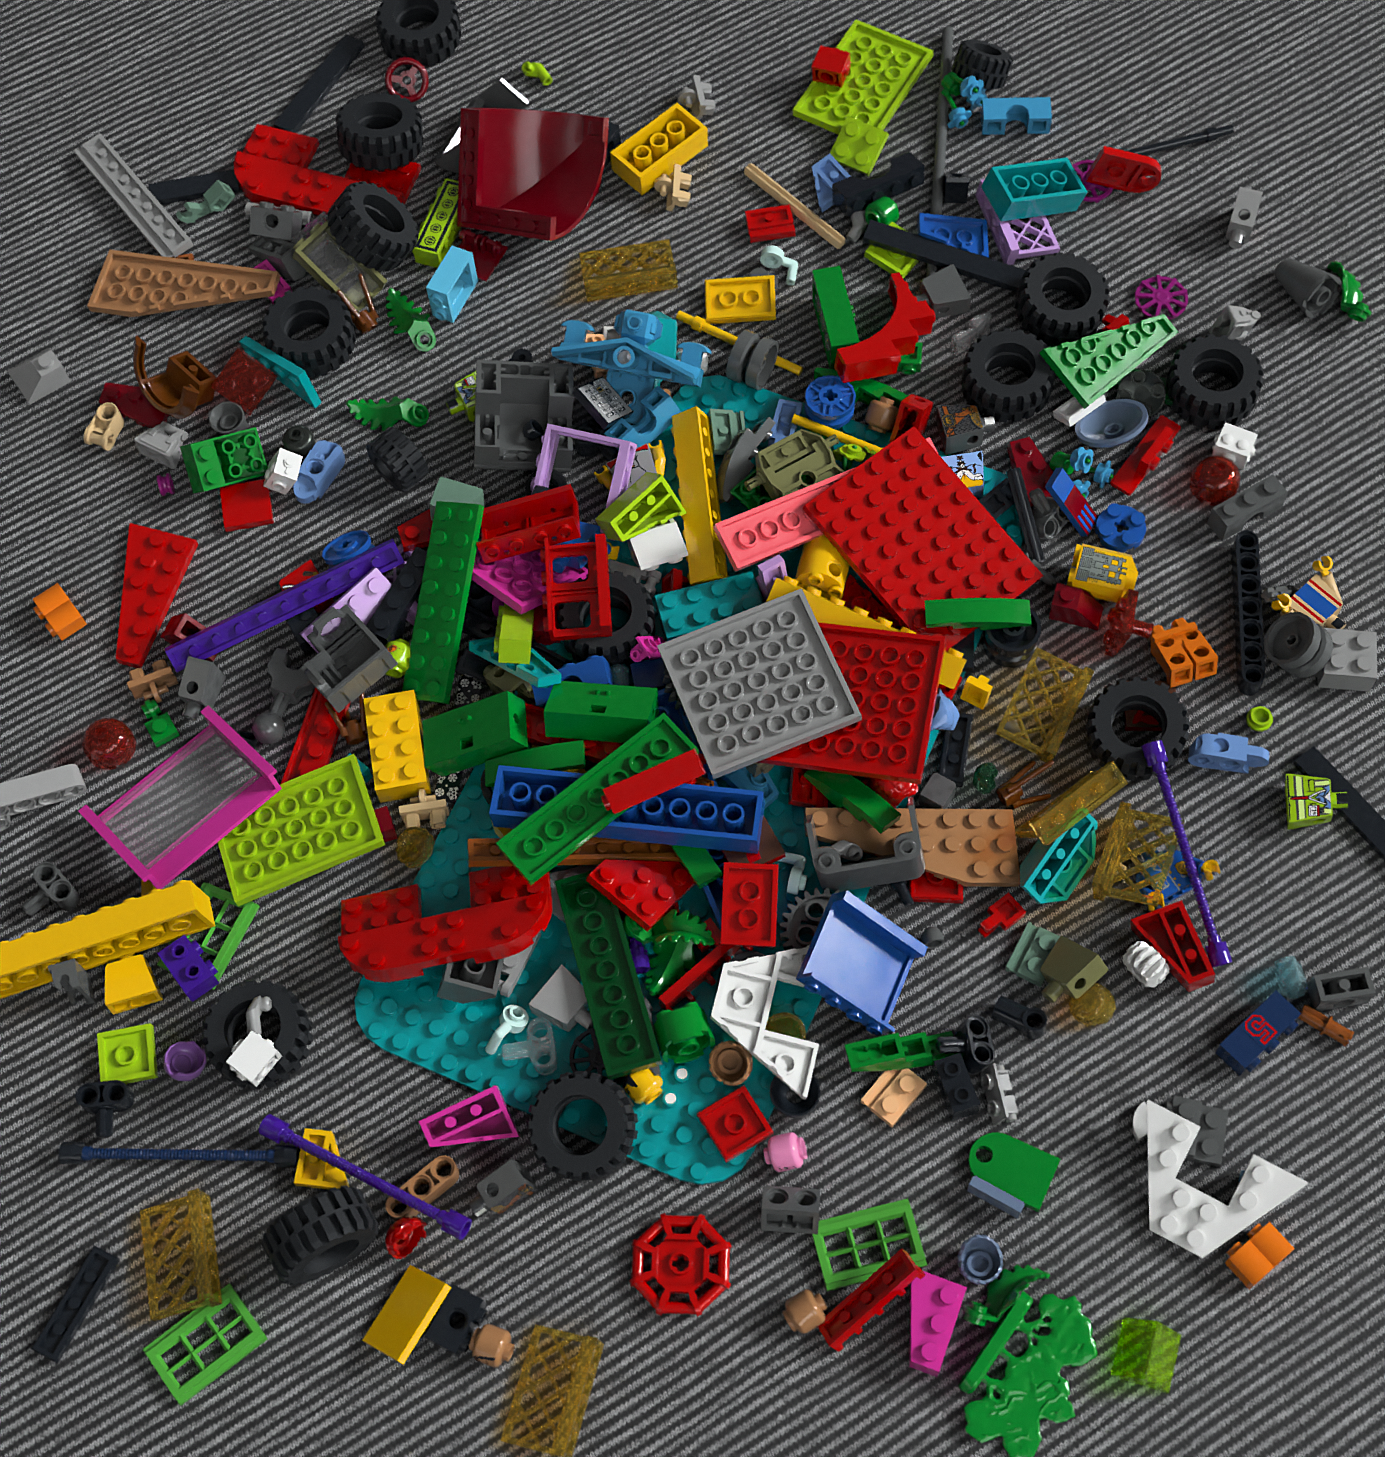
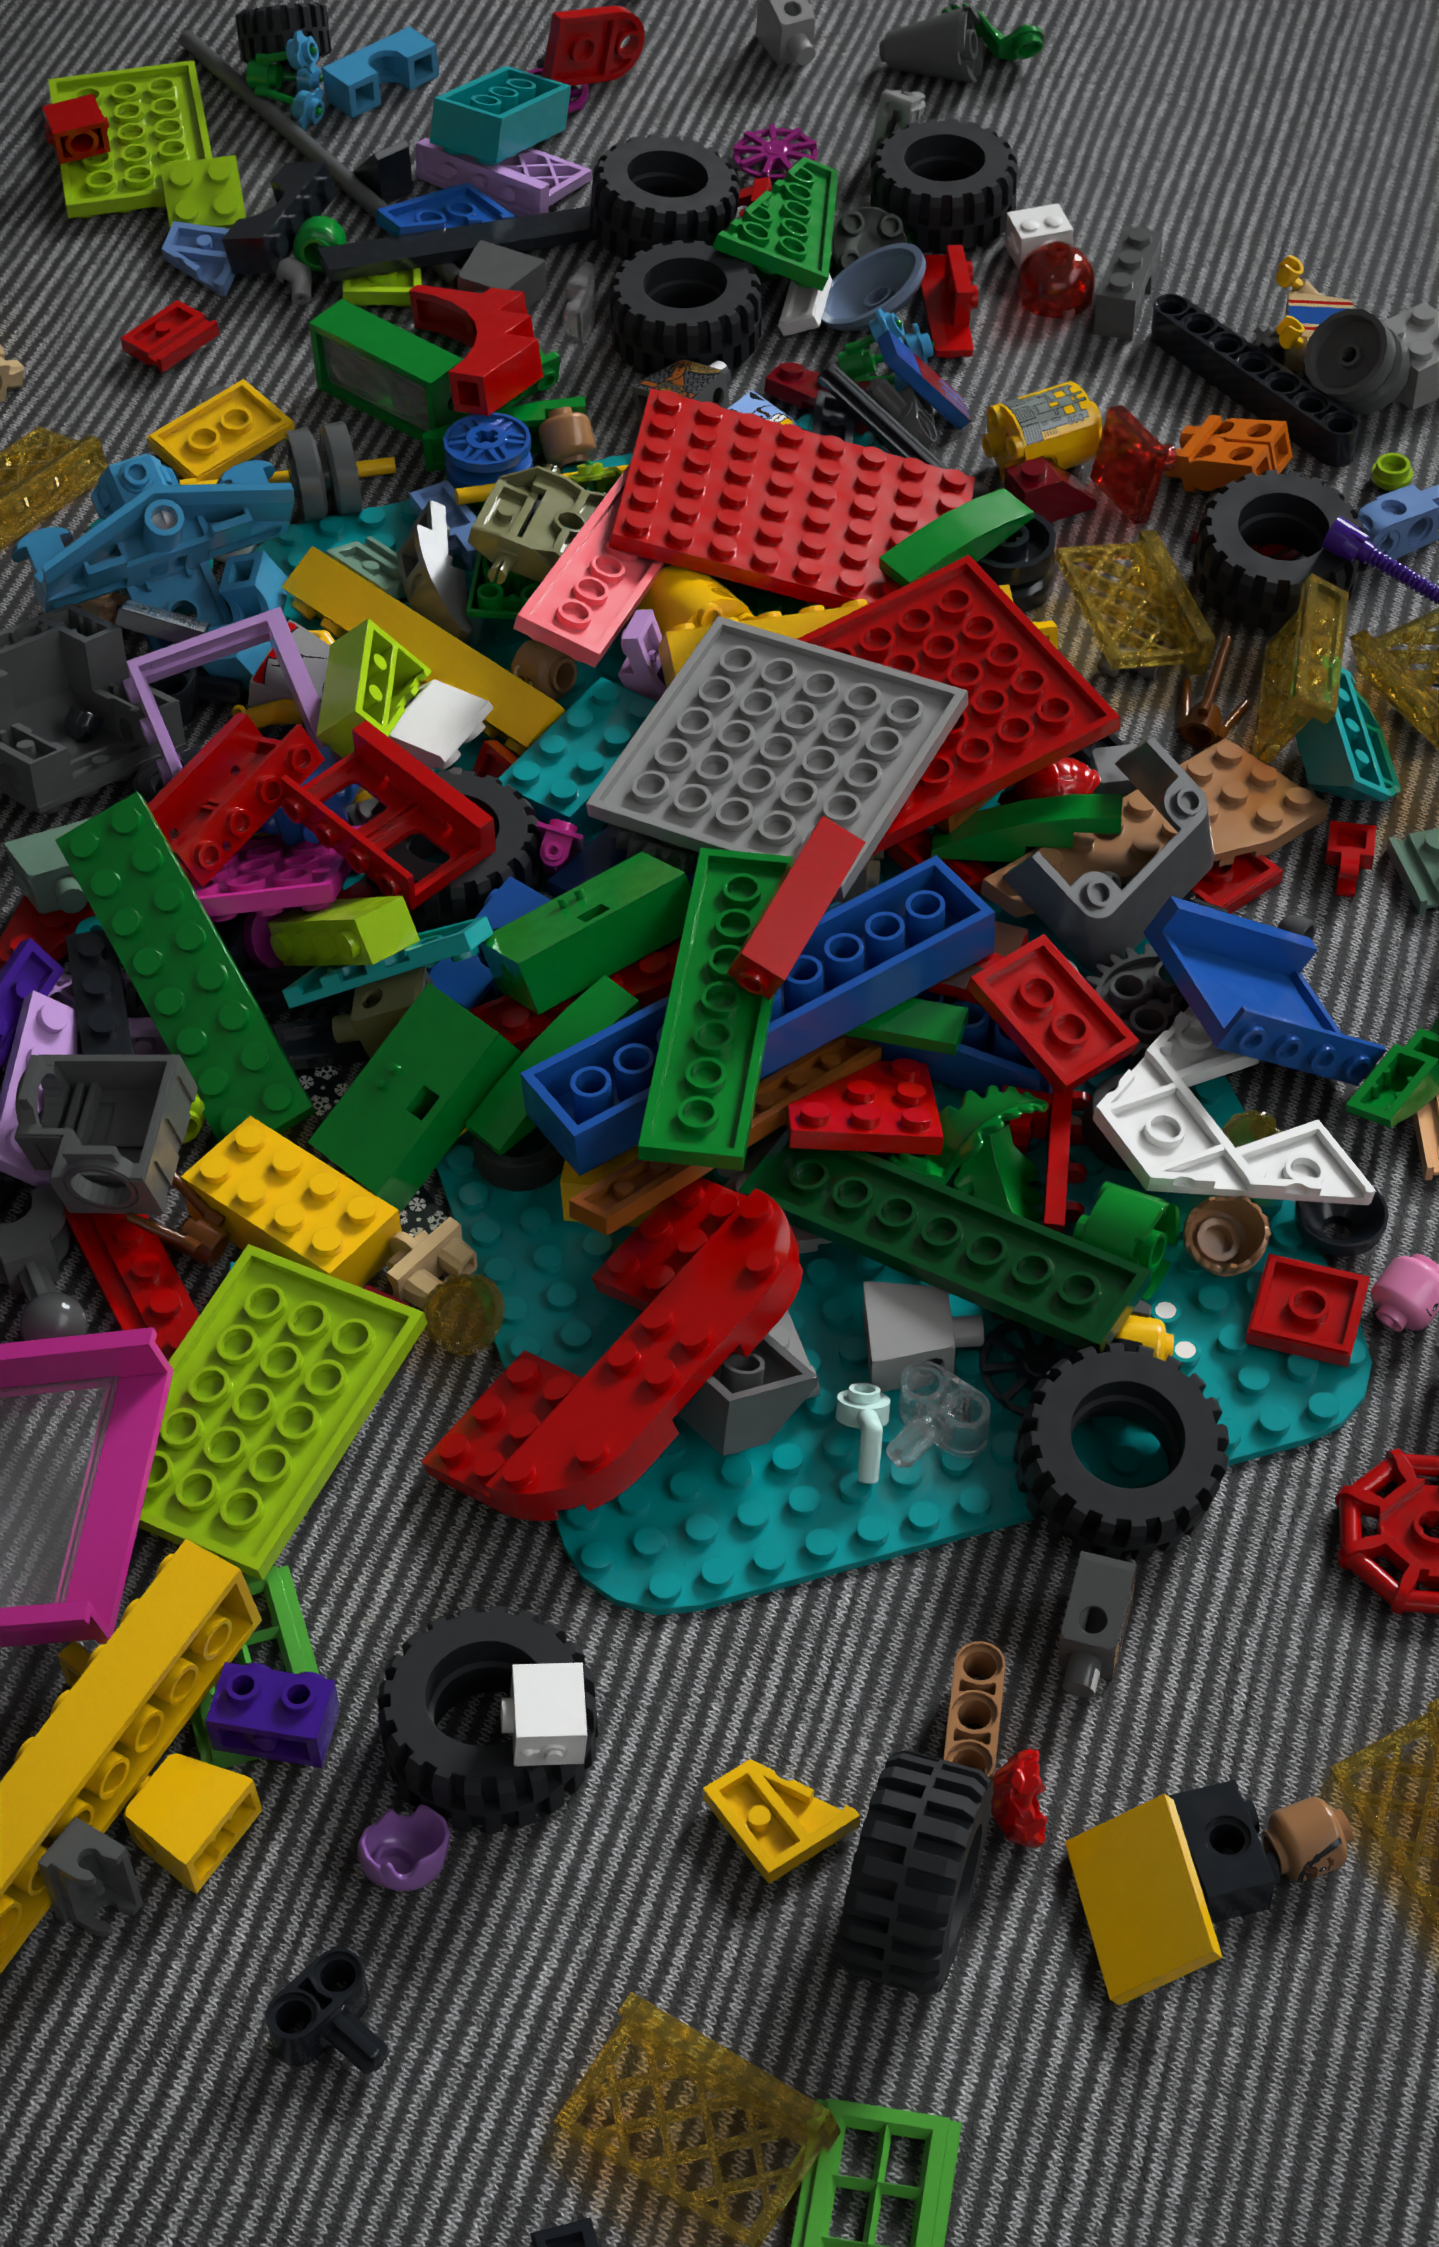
camera: 45 degrees left, 15 degrees down
(78, 1153) = (356, 2124): dark blue hose -> none
(127, 1054) = (288, 1918): lime plate -> none
(254, 1012) = (476, 1664): light grey arm -> none
(452, 1221) = (1084, 1708): dark purple hose -> none
(471, 1120) = (950, 1574): dark pink wedge -> none
(774, 257) = (218, 366): light aqua plate -> none
(797, 207) = (152, 302): tan axle -> none
(912, 412) = (615, 416): red torso -> none
(985, 777) = (1151, 722): clear green plate -> none
(1120, 515) = (985, 381): blue plate -> none

